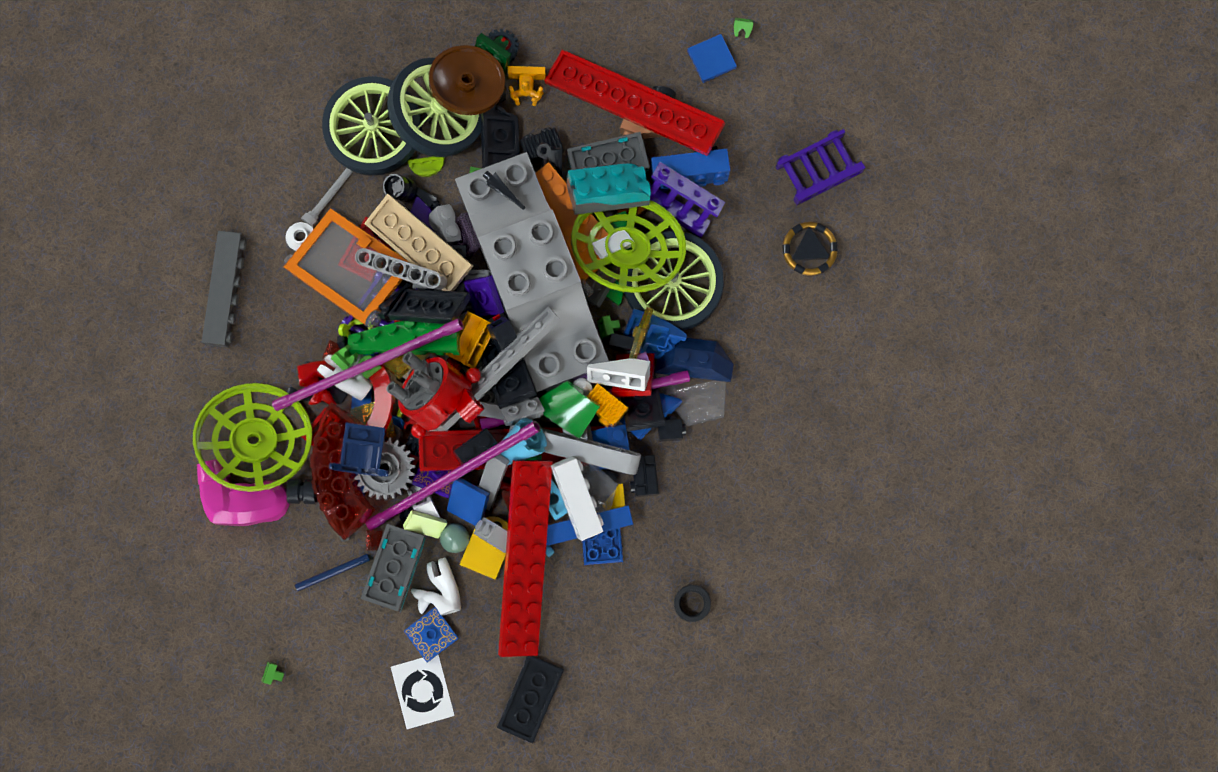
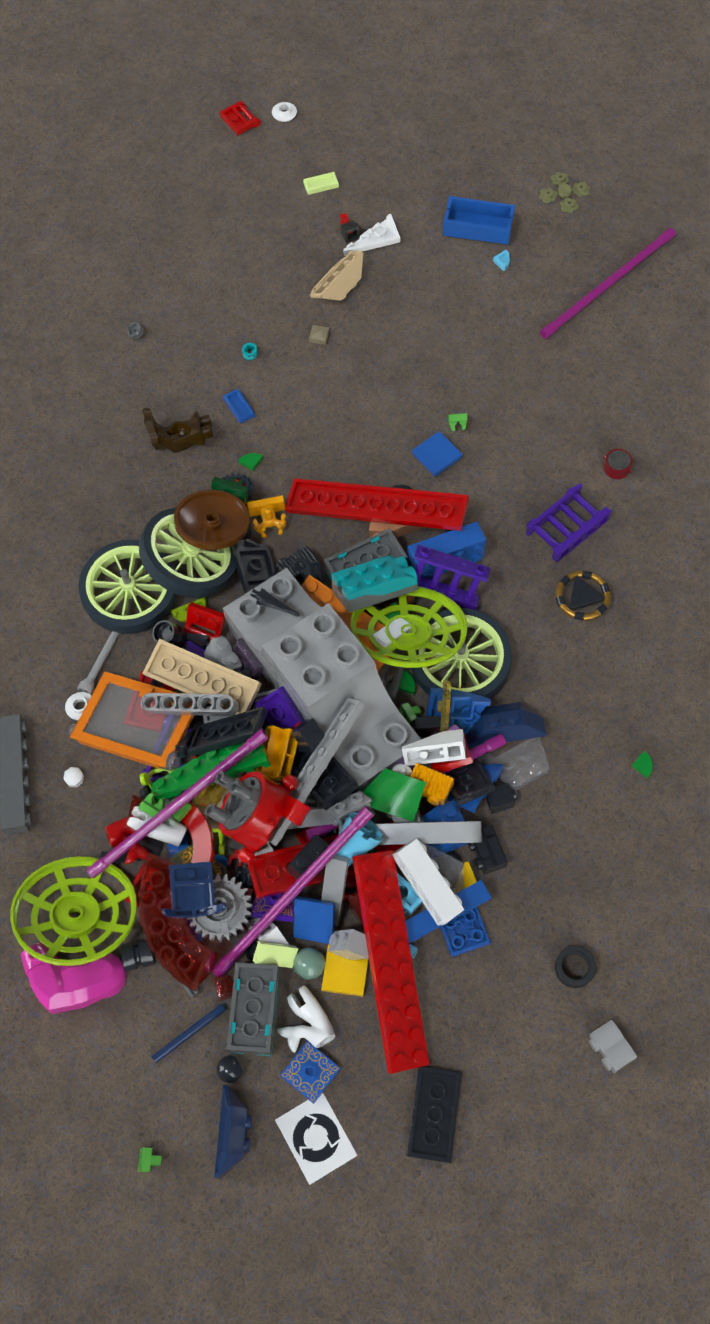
camera: 10 degrees left, 15 degrees down
(279, 306) = (73, 777): none -> white tile
(350, 668) = (232, 1133): none -> dark blue wedge
(360, 614) = (229, 1069): none -> black piece
(439, 180) = (206, 618): none -> red plate
(524, 17) = (251, 460): none -> green tile
(703, 682) = (612, 1047): none -> light grey brick
(815, 431) = (643, 765): none -> green tile
(889, 115) = (617, 463): none -> piece

